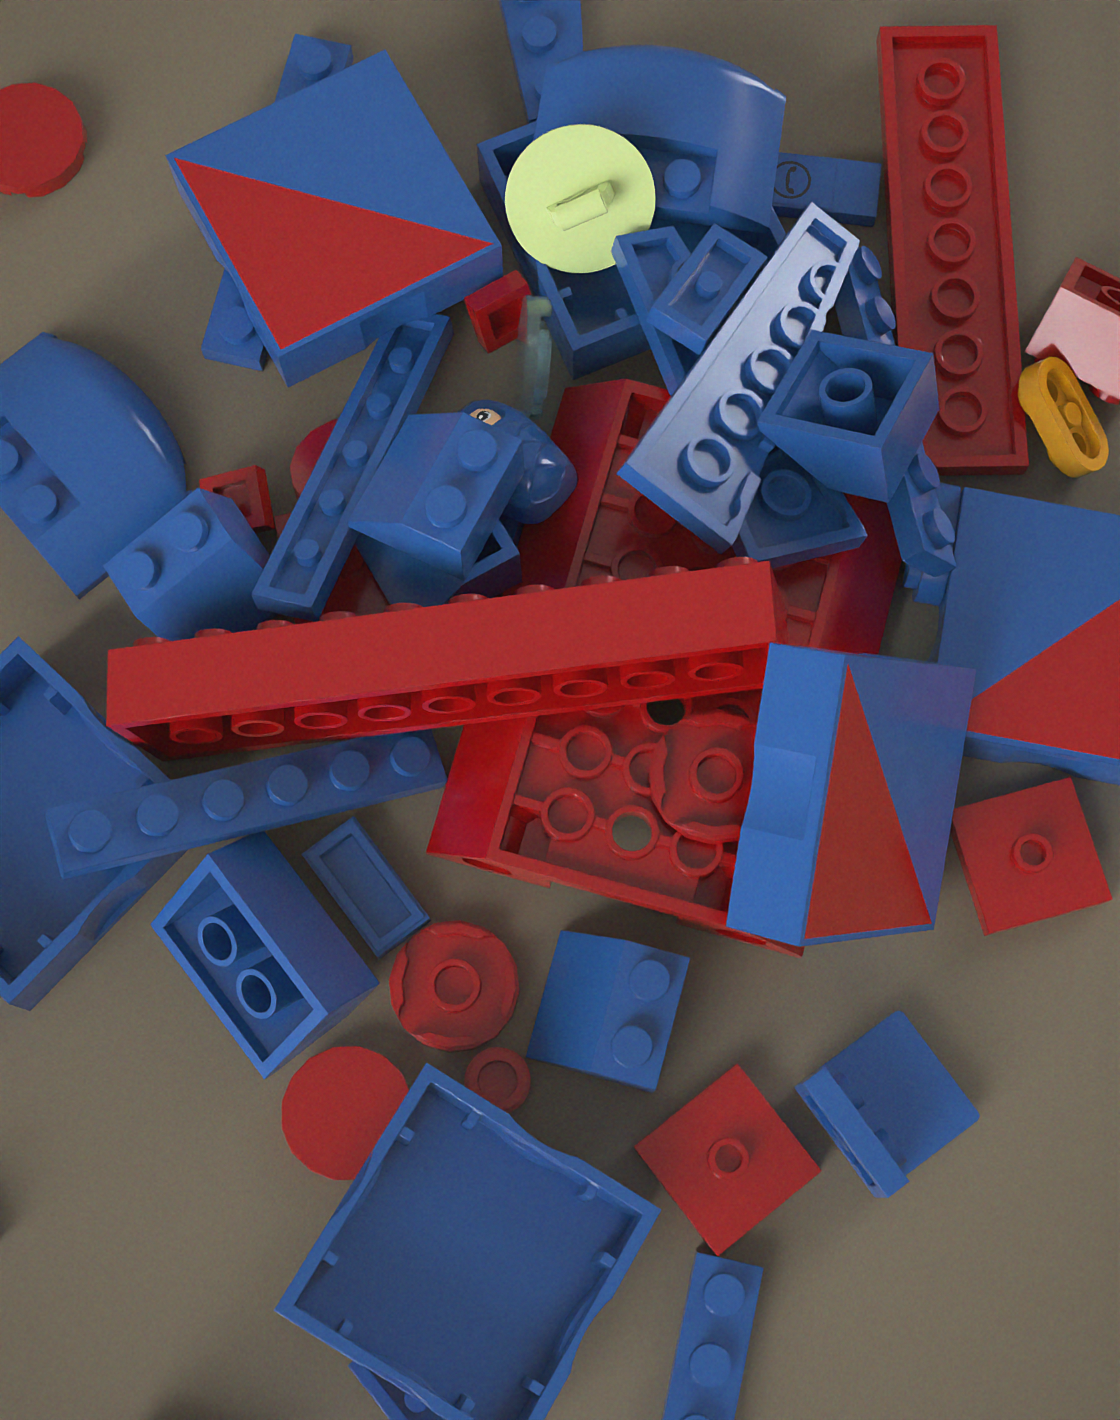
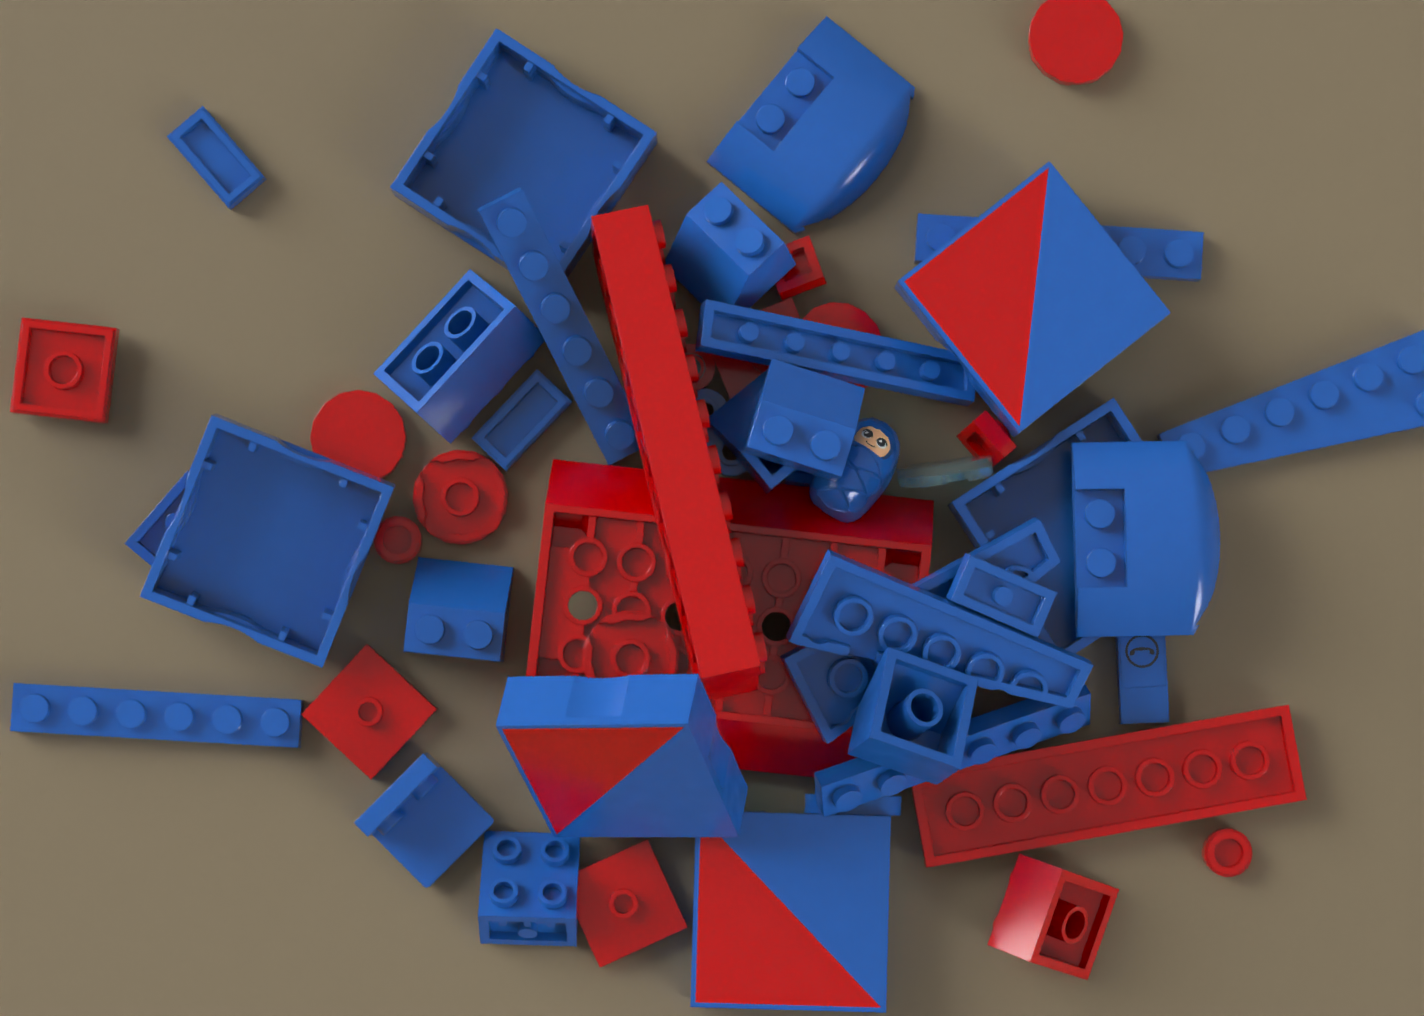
camera: 80 degrees right, 10 degrees up
(576, 195) = (1065, 486): yellowish green shield -> none
(996, 975) = (529, 889): none -> blue bracket
(1045, 130) = (1227, 852): none -> red tile
(1063, 417) = (972, 887): light orange plate -> none

